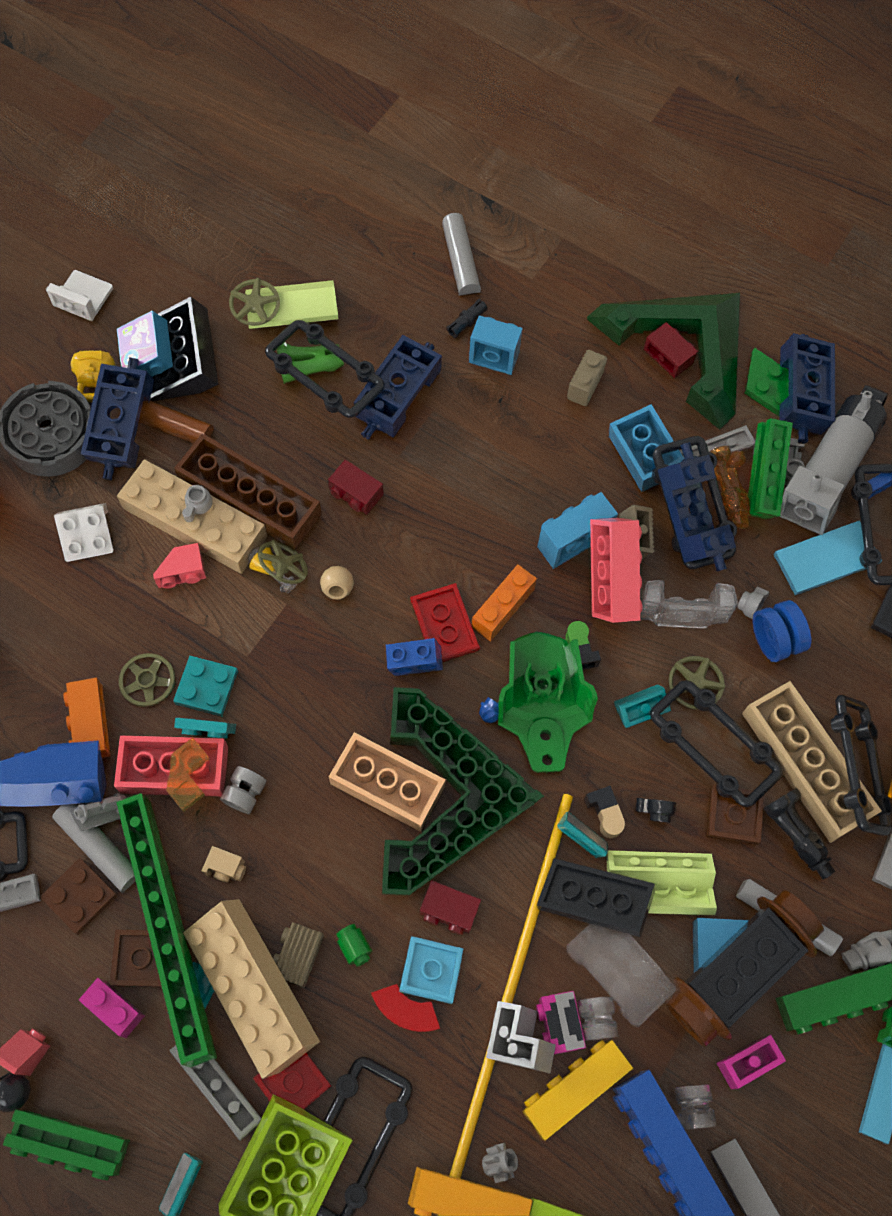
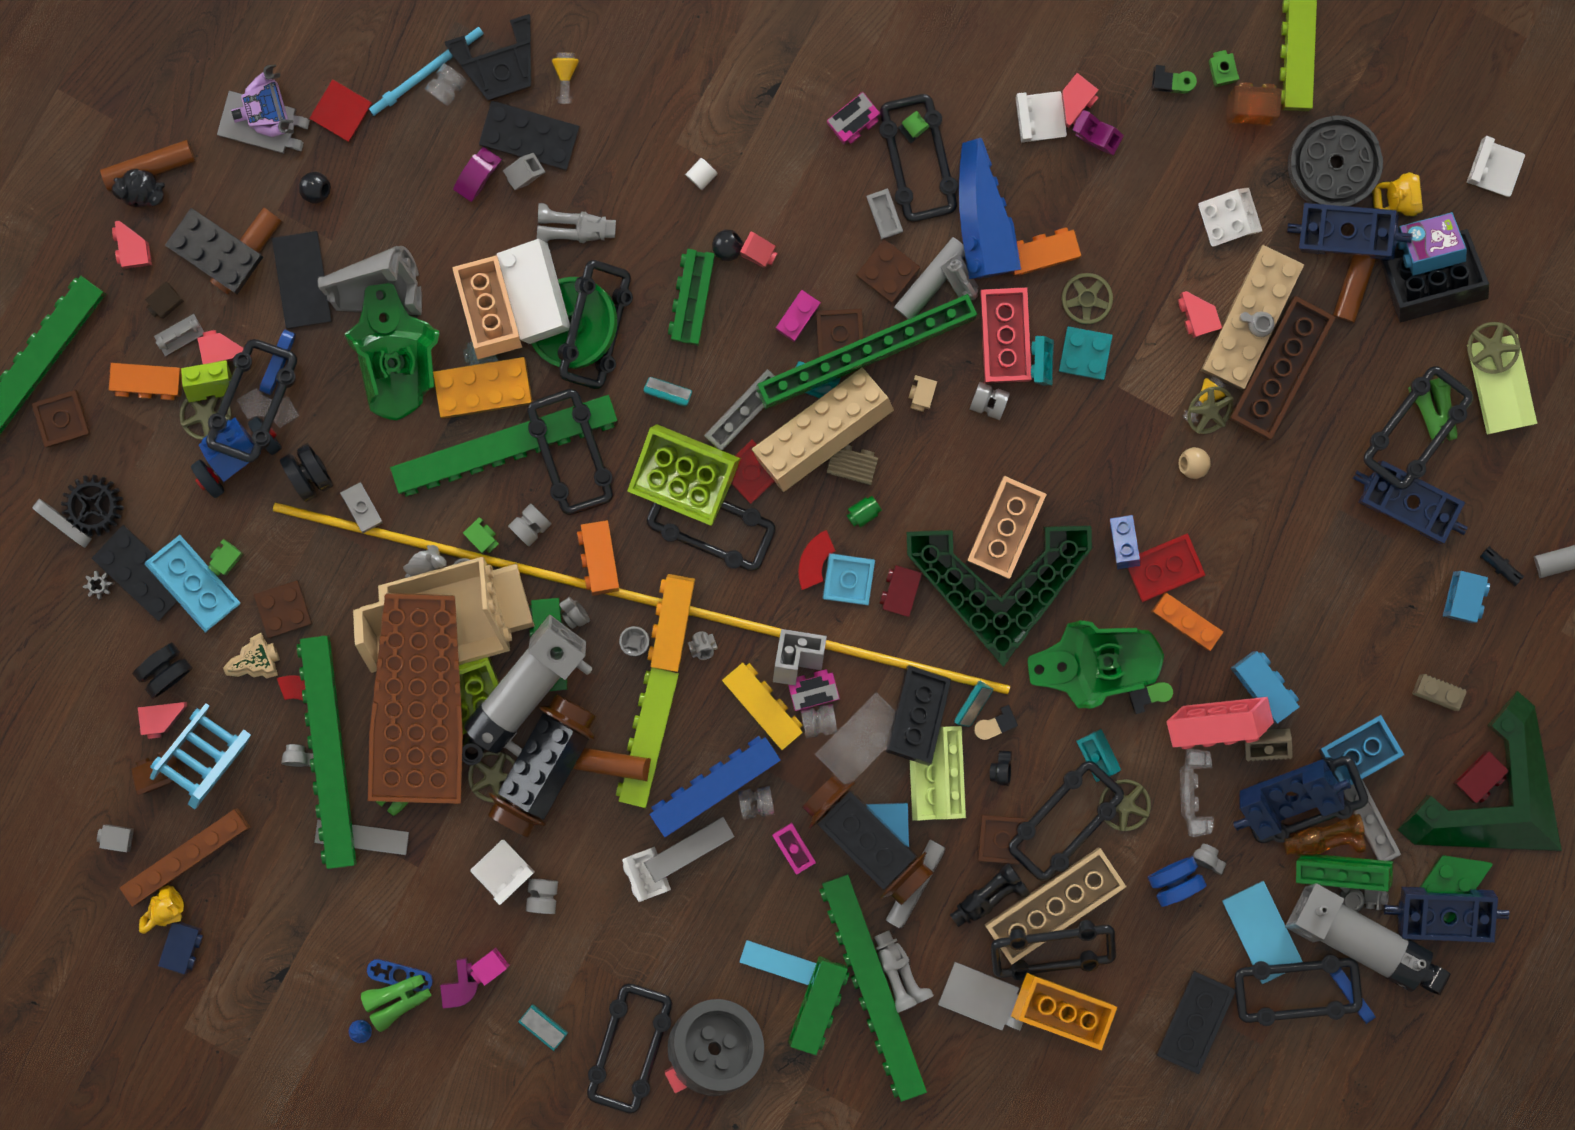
camera: 85 degrees right, 20 degrees up
(183, 763) = (1005, 347): clear yellow tile -> none
(355, 487) = (1297, 470): dark red brick -> none
(489, 710) = (1081, 613): blue plate -> none

